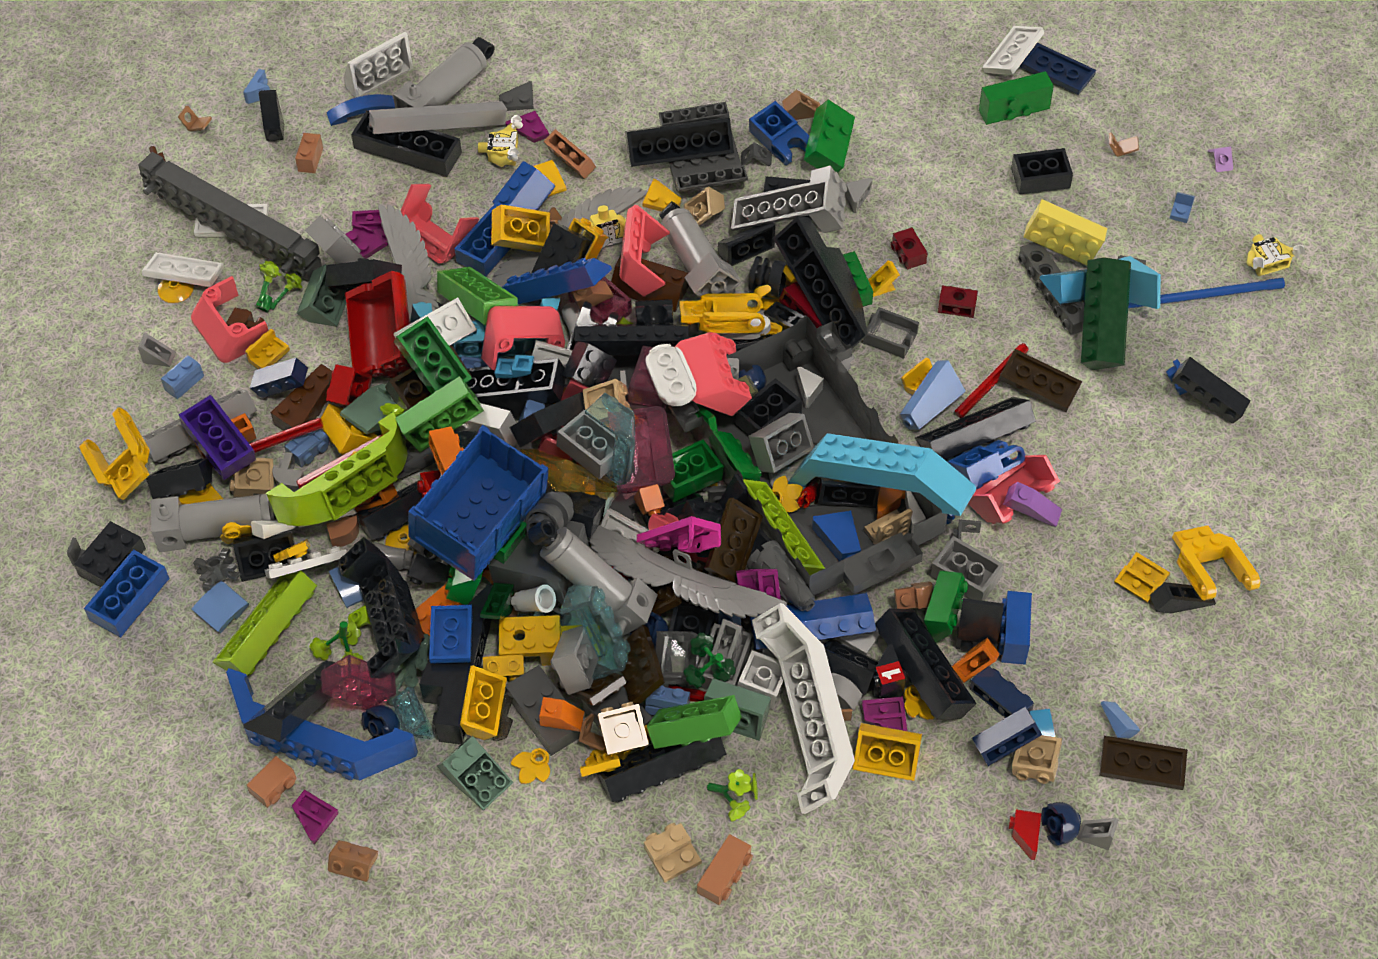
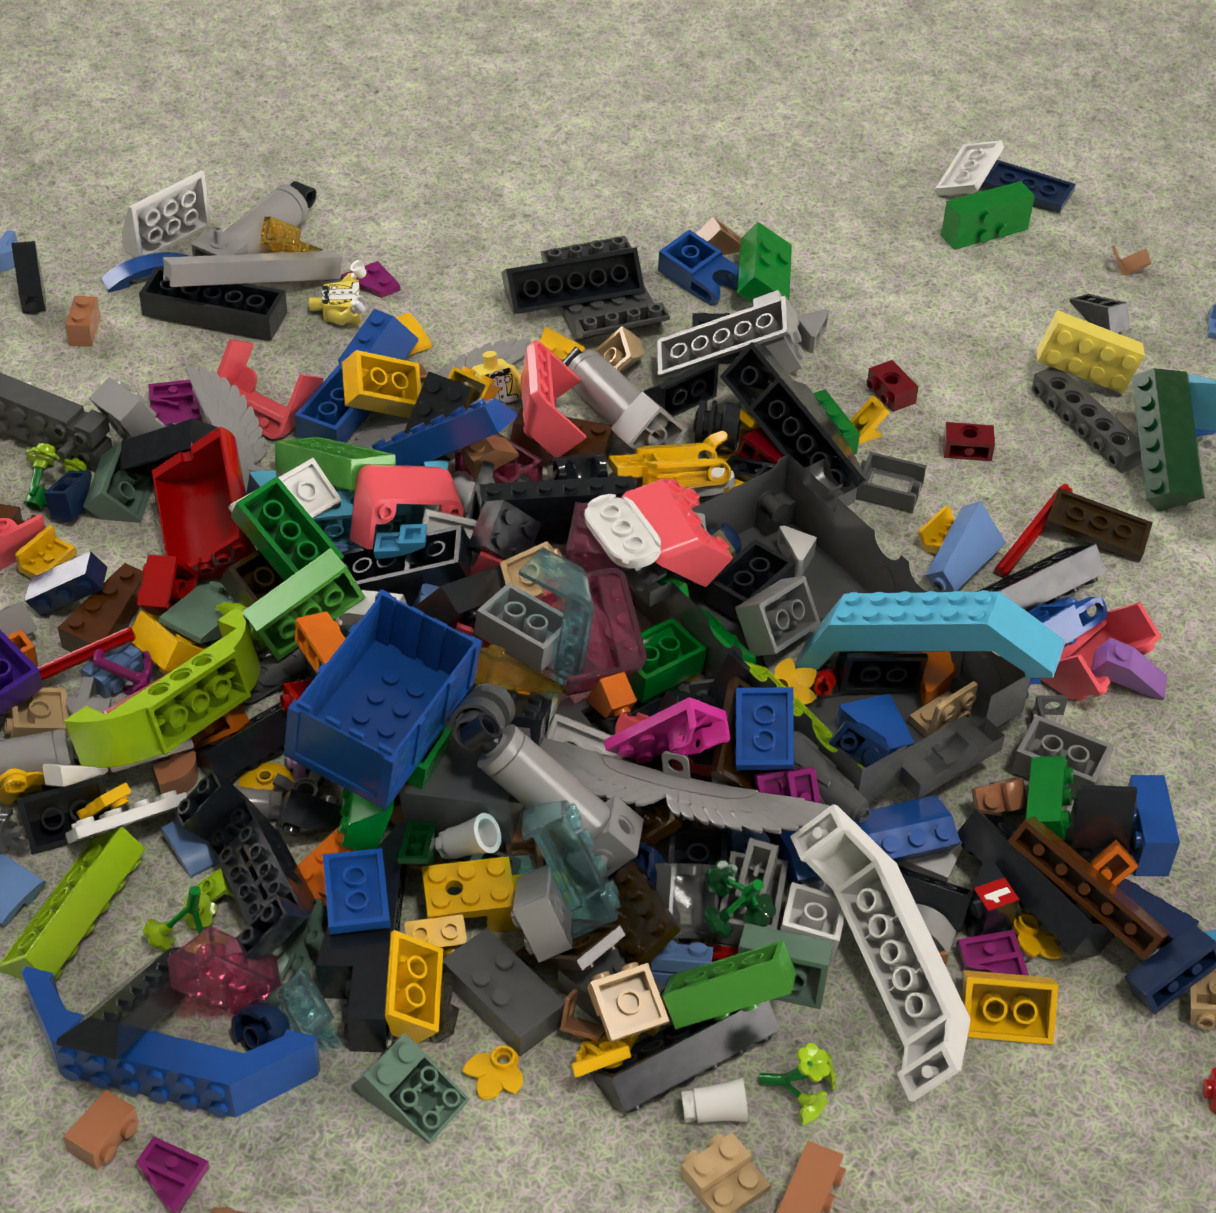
camera: 10 degrees left, 10 degrees down
(286, 303) = (68, 495): none -> dark blue slope
(324, 457) = (138, 679): none -> magenta piece
(465, 87) = (283, 236): none -> clear yellow bracket
(518, 98) = (355, 248): dark grey wing -> none
(560, 715) = (532, 991): orange slope -> none
(569, 154) = (431, 303): nougat brick -> none
(674, 801) = (716, 1103): none -> white plant
(746, 538) = (764, 729): none -> blue plate
(758, 153) = (673, 289): dark grey bracket -> none
(819, 550) = (860, 743): none -> dark blue slope
(917, 515) = (981, 704): white slope -> none
(957, 673) = (1089, 887): none -> reddish brown brick
(1041, 171) = (1039, 291): black brick -> none
(1066, 286) = (1110, 409): dark azure slope -> none
(1089, 193) = (1103, 311): none -> black slope

